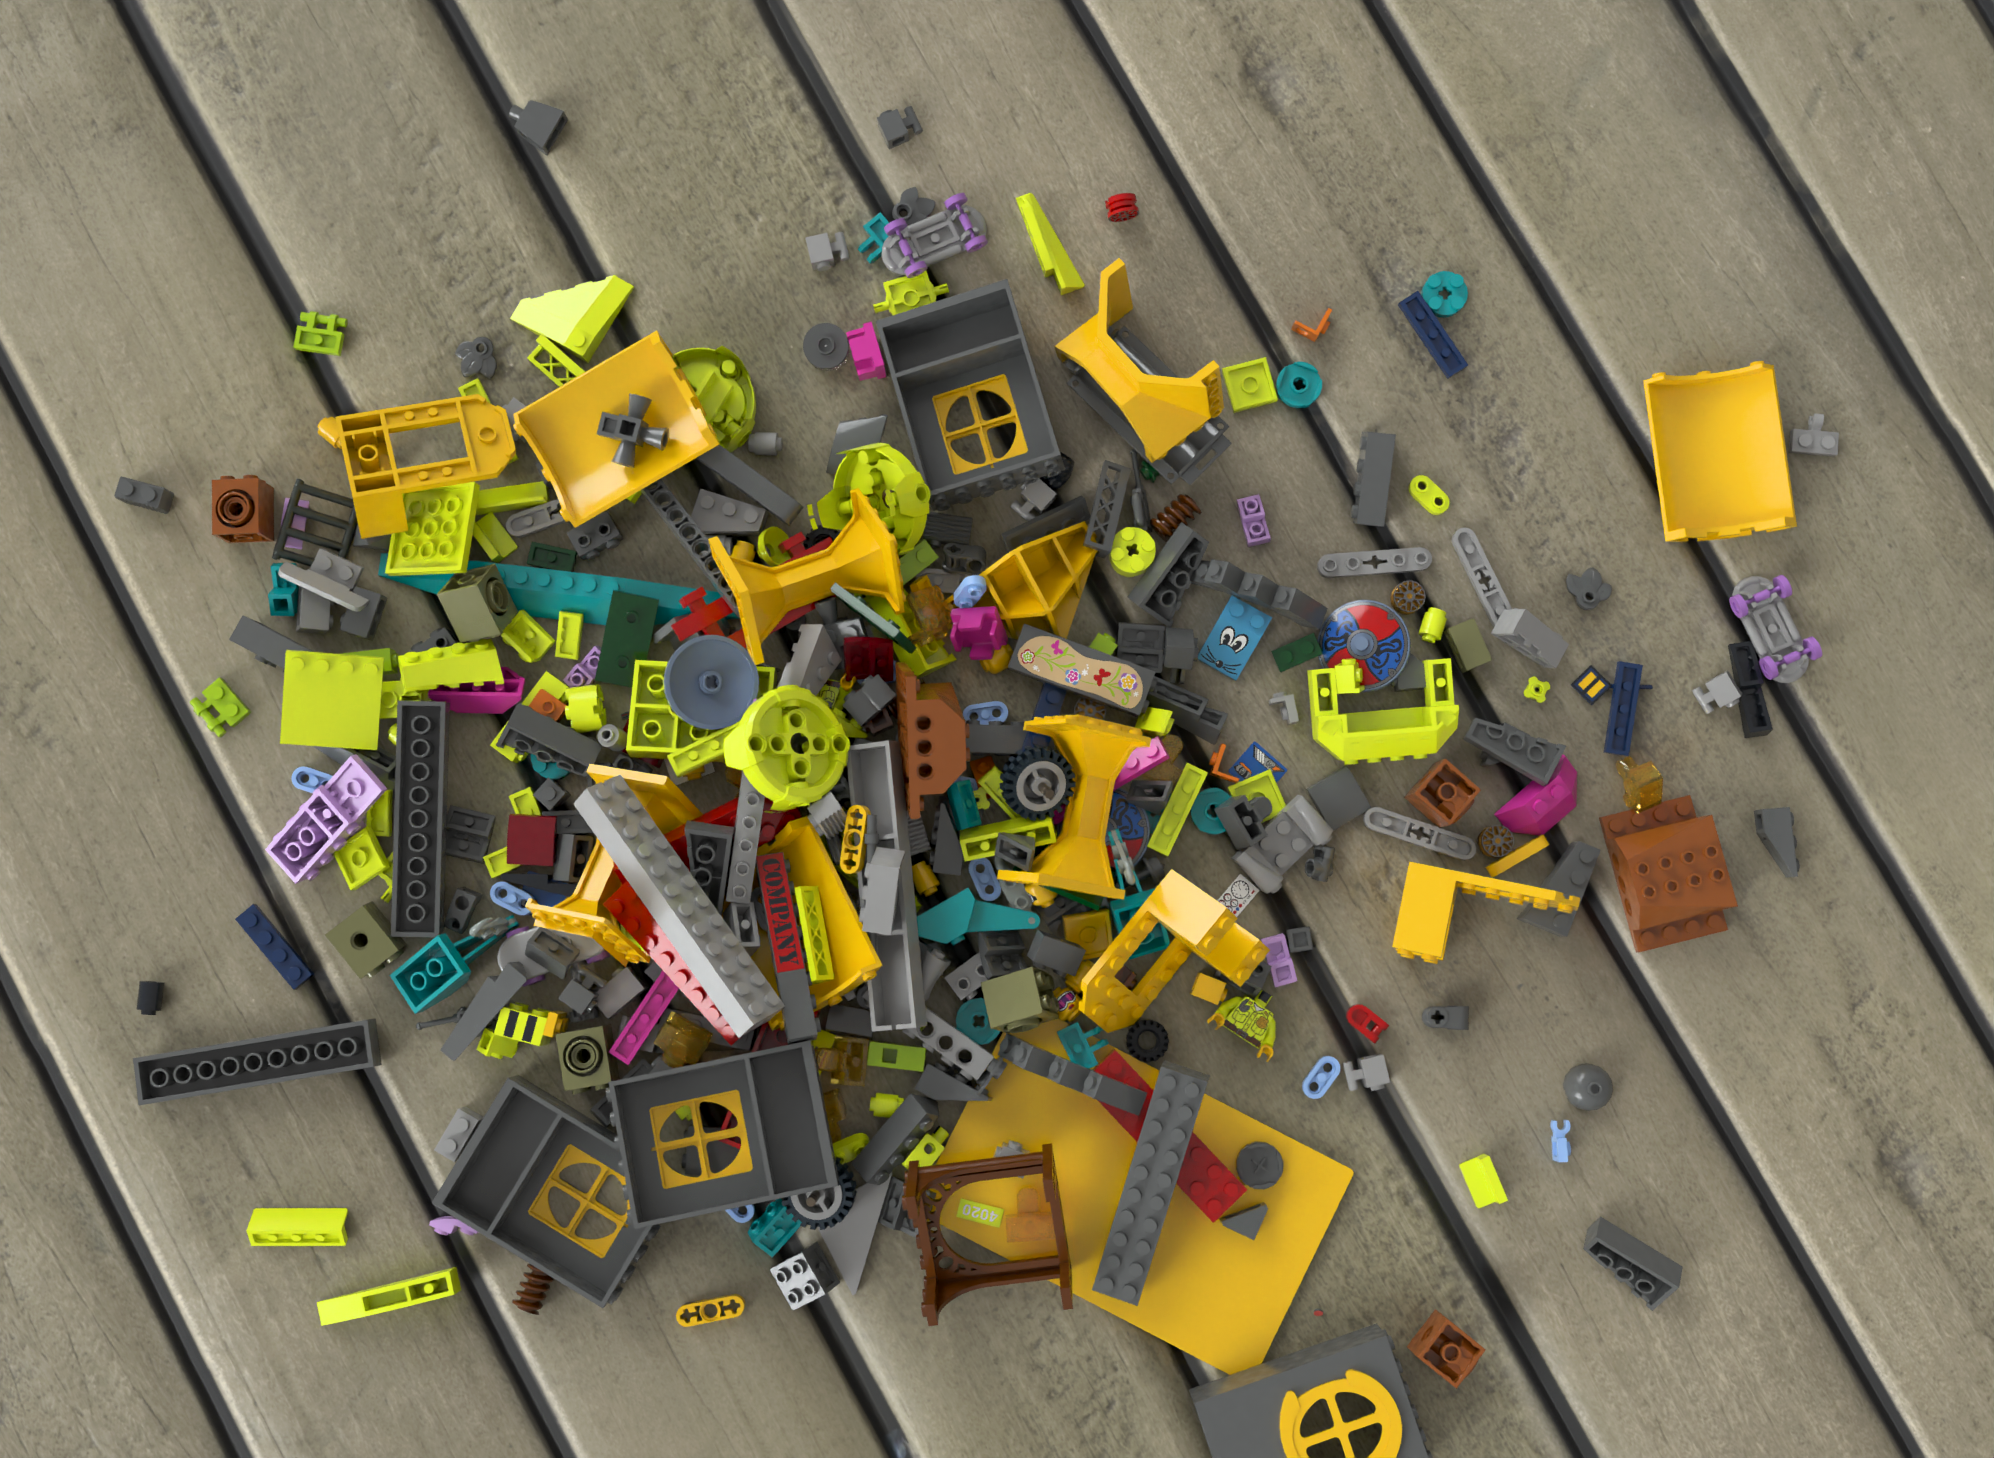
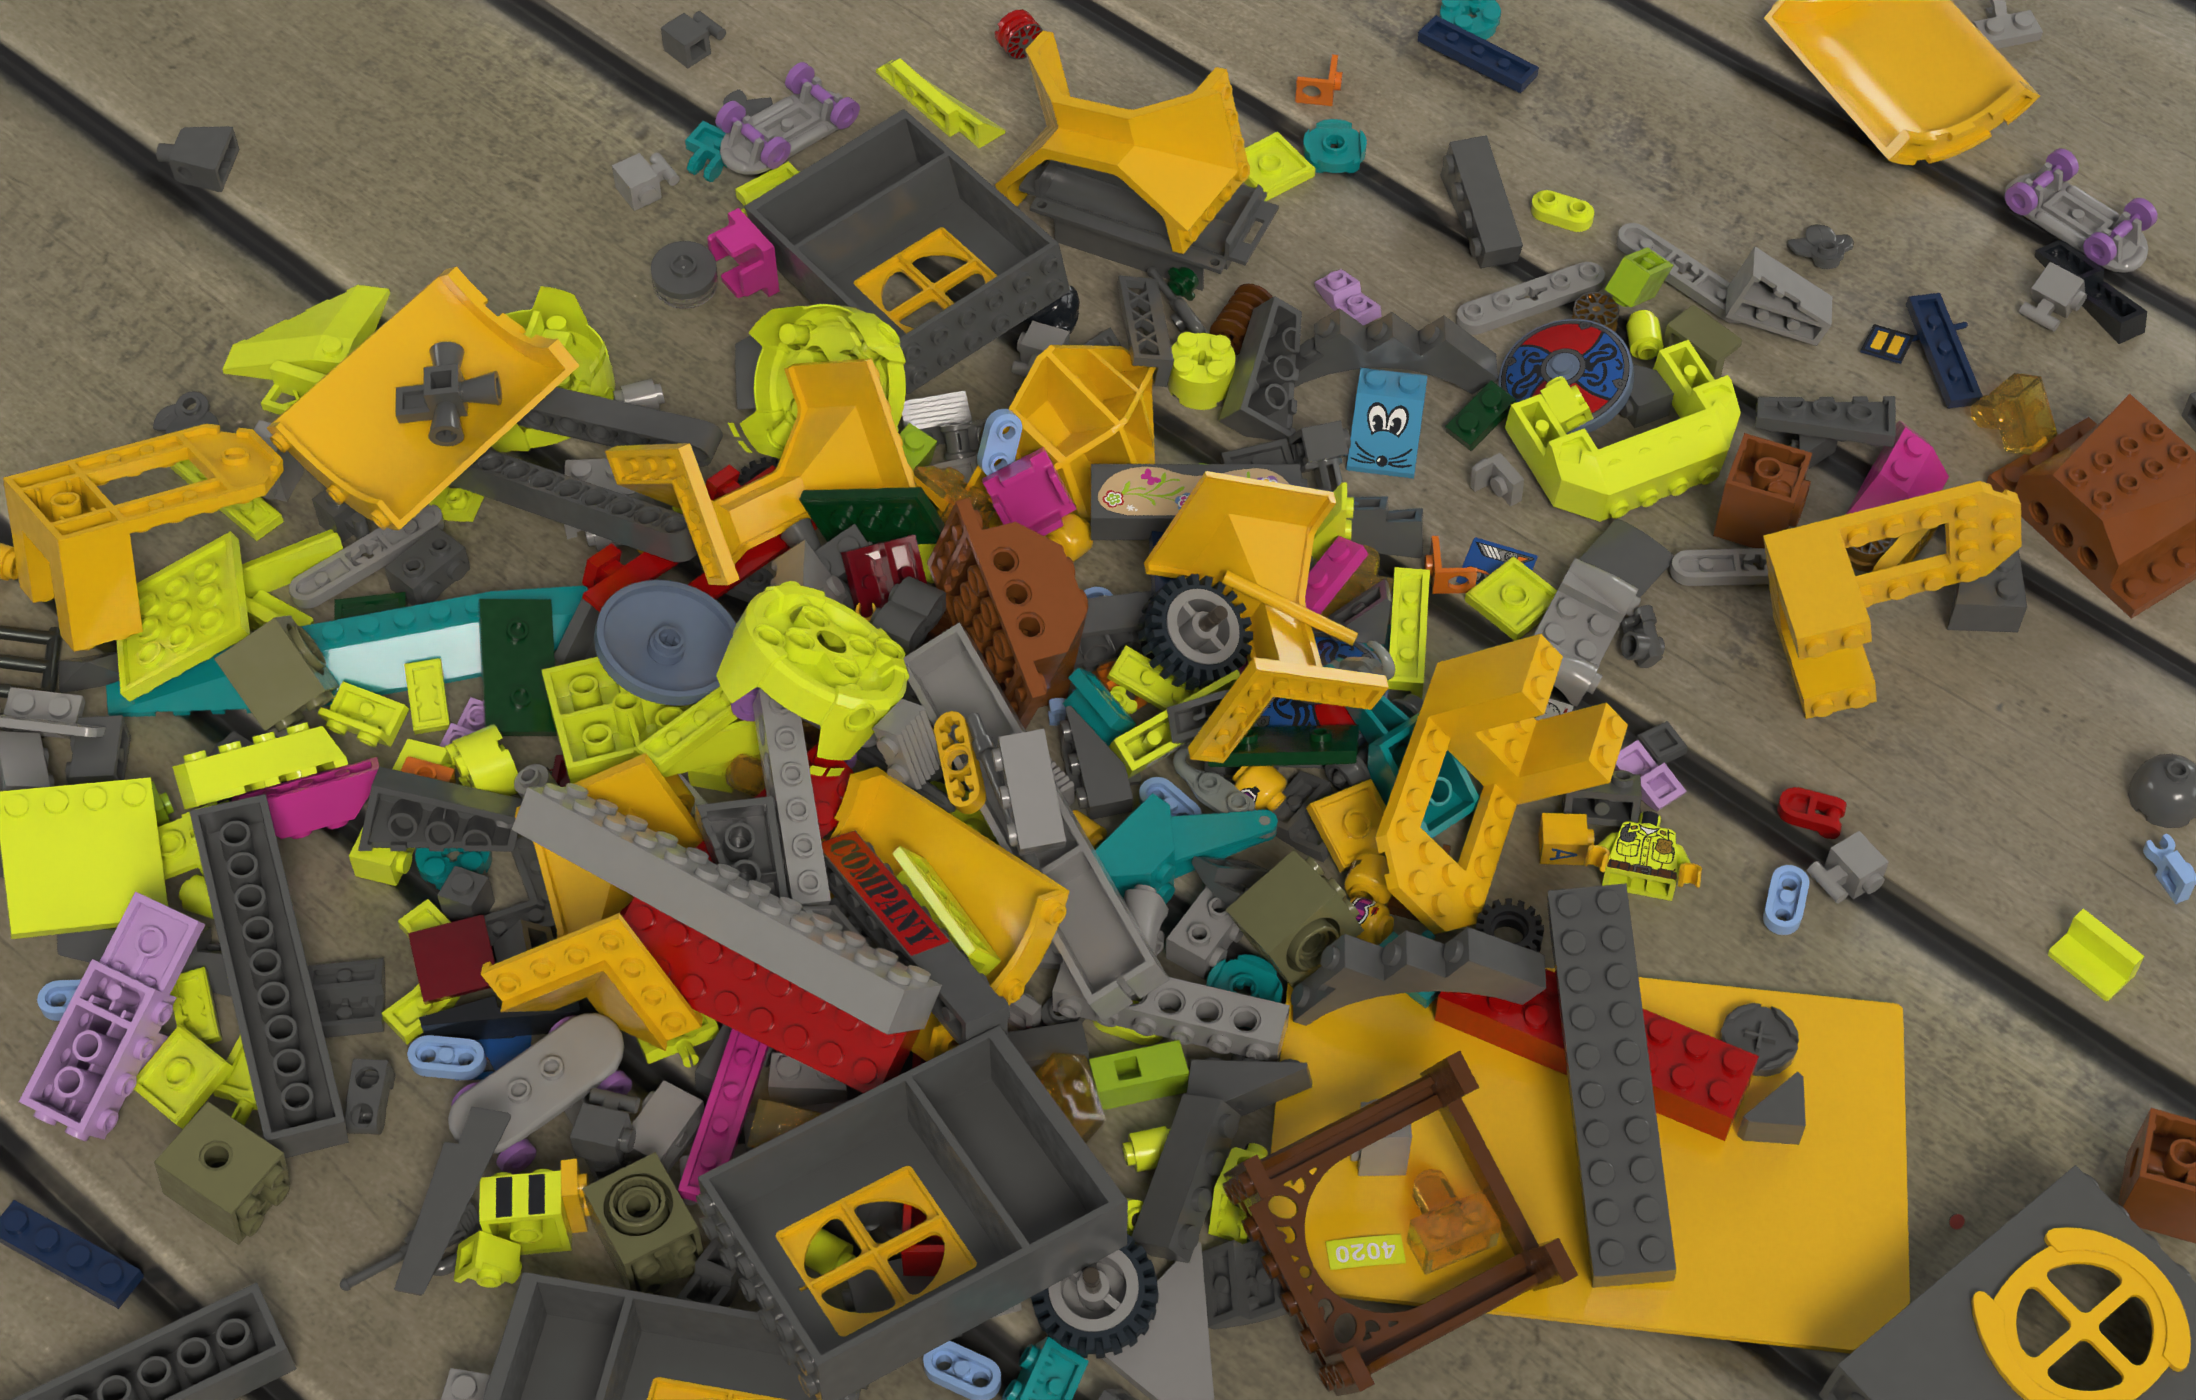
camera: 20 degrees left, 30 degrees down
(439, 968) = (366, 1167): teal slope -> none
(551, 952) = (535, 1084): dark grey panel -> none
(994, 1070) = (1299, 1018): dark grey plate -> none
(1055, 953) = (1327, 838): dark grey brick -> none
(1100, 788) = (1290, 608): none -> yellow bar
(1198, 812) = (1455, 643): teal plate -> none
(1244, 818) = (1506, 605): dark grey brick -> none
(1448, 583) = (1638, 277): none -> lime brick
(1449, 1017) = (1921, 768): dark grey piece -> none
(1530, 691) = (1820, 367): neon yellow plate -> none

